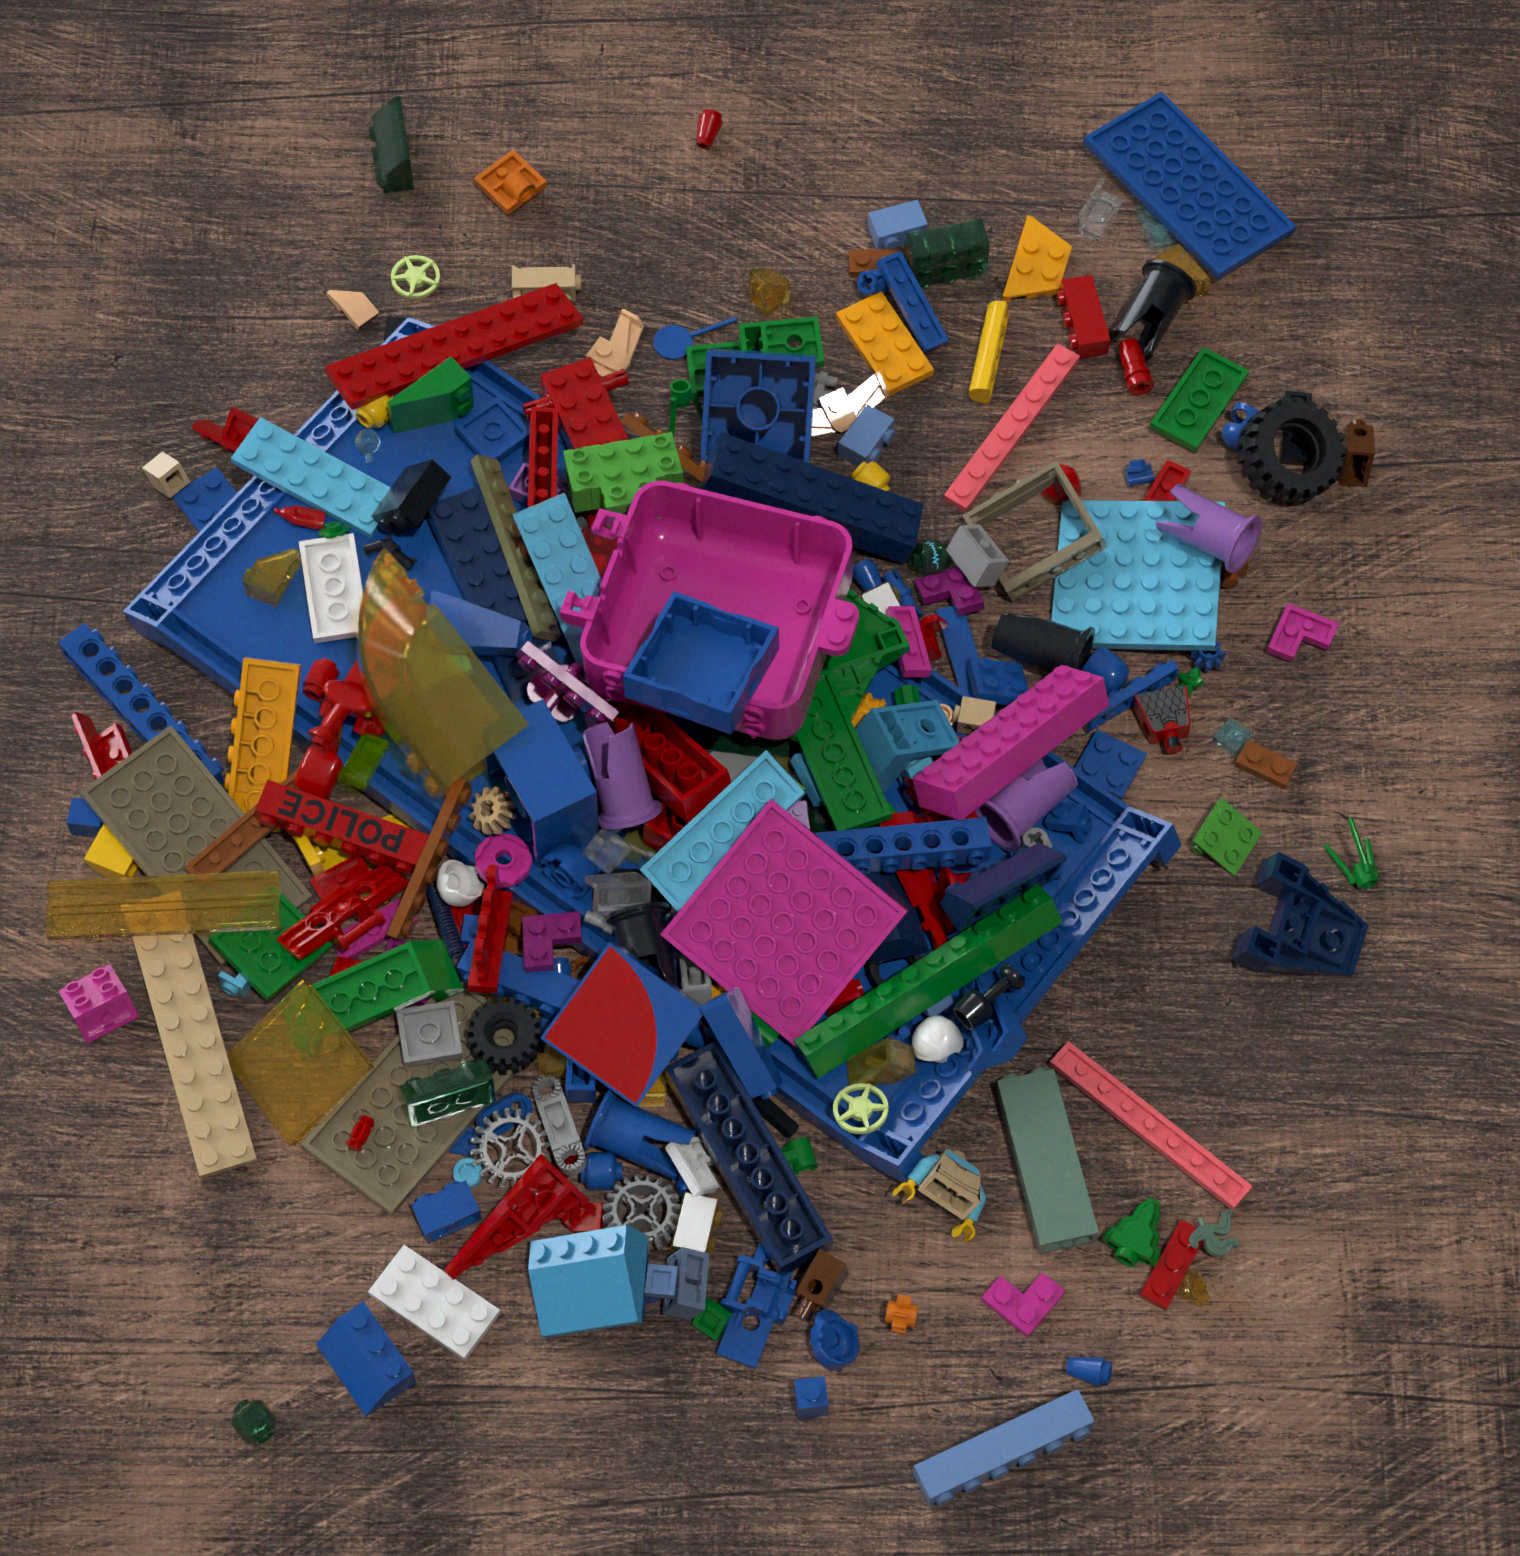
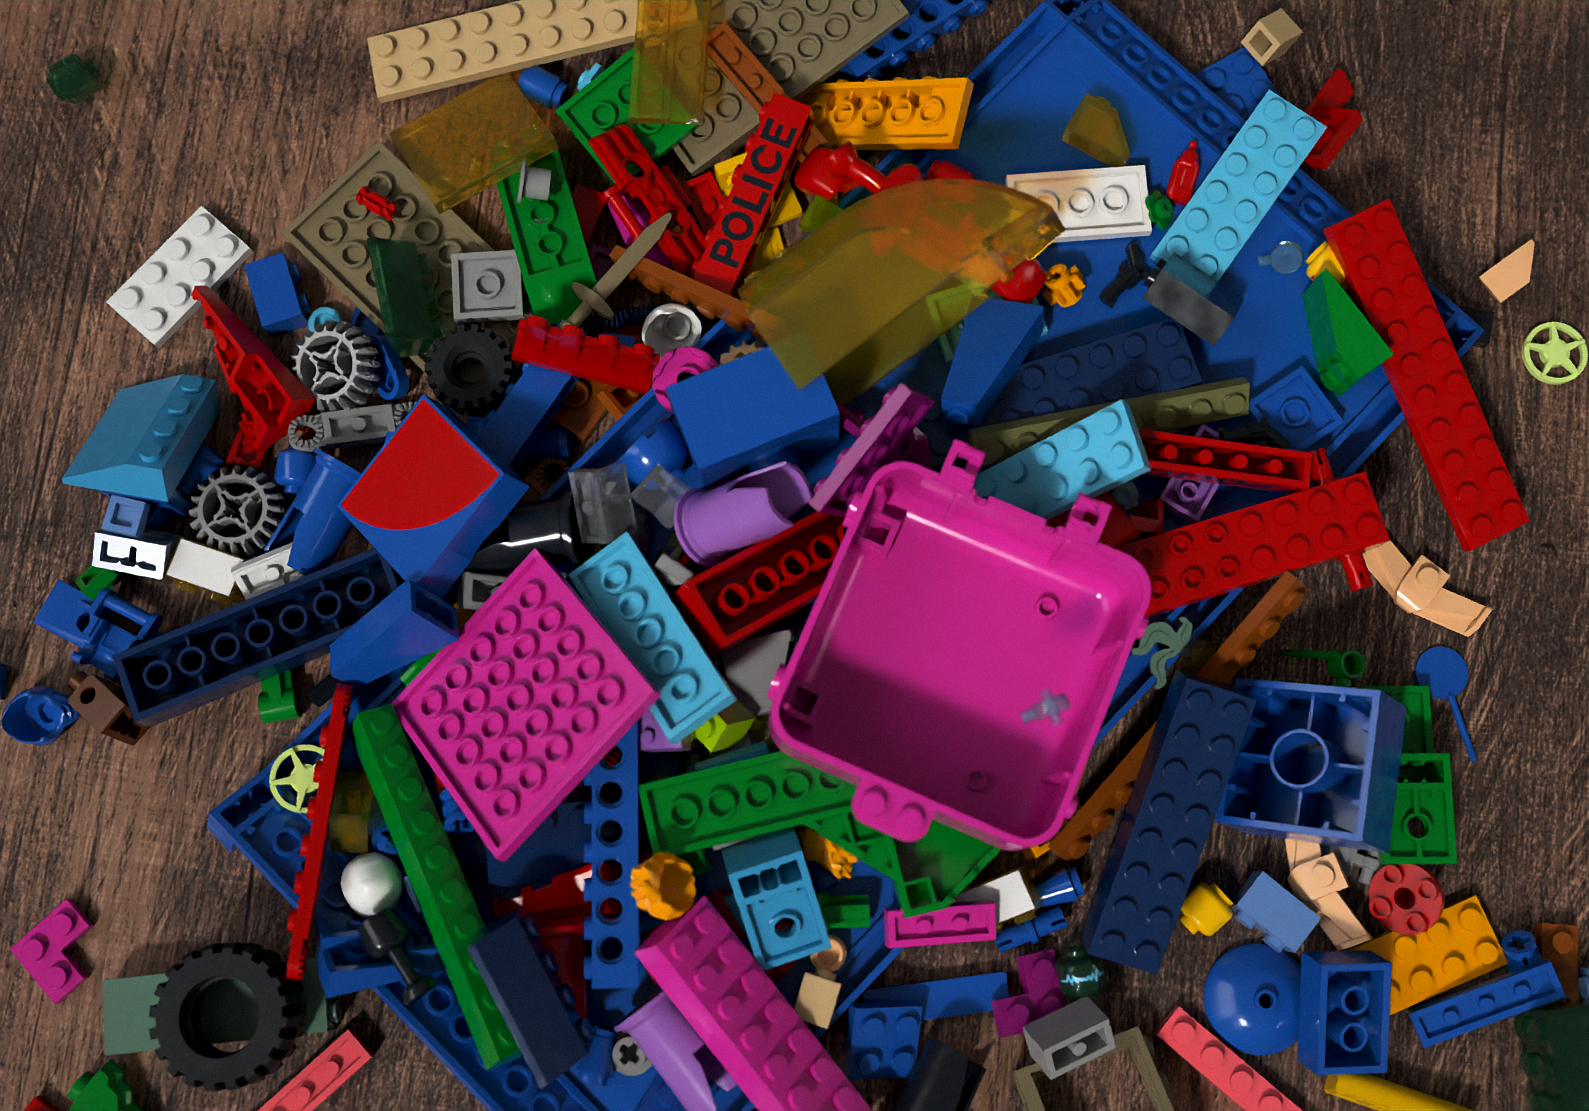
camera: 95 degrees right, 15 degrees up
(239, 1021) = (543, 87): none -> blue brick
(343, 993) = (533, 182): none -> light grey piece
(365, 1359) = (124, 202): blue slope -> none
(439, 938) = (594, 299): none -> dark tan sword
(513, 454) = (1255, 433): none -> black piece
(534, 278) = (1540, 498): tan window -> none
(543, 932) = (582, 417): magenta plate -> none
(614, 472) = (1191, 560): bright green piece -> none
(669, 827) = (672, 571): none -> light grey tile
(701, 662) = (845, 613): blue tile -> none
(753, 532) = (1049, 707): none -> clear light blue piece
(768, 290) = (1514, 806): clear yellow slope -> none
(846, 351) = (1406, 898): none -> red plate
(871, 975) = (455, 820): none -> blue bush
(899, 1076) = (315, 844): none -> red plate
(901, 1313) = (59, 798): orange gear -> none
(910, 802) = (663, 886): none -> light orange hair
(928, 459) = (1233, 996): none -> blue dish
(929, 626) = (962, 955): red bracket -> none
(932, 385) = (1344, 1012): none -> blue brick
(950, 1183) = (201, 875): torso -> none
(1057, 1092) = (179, 1019): none -> black tyre

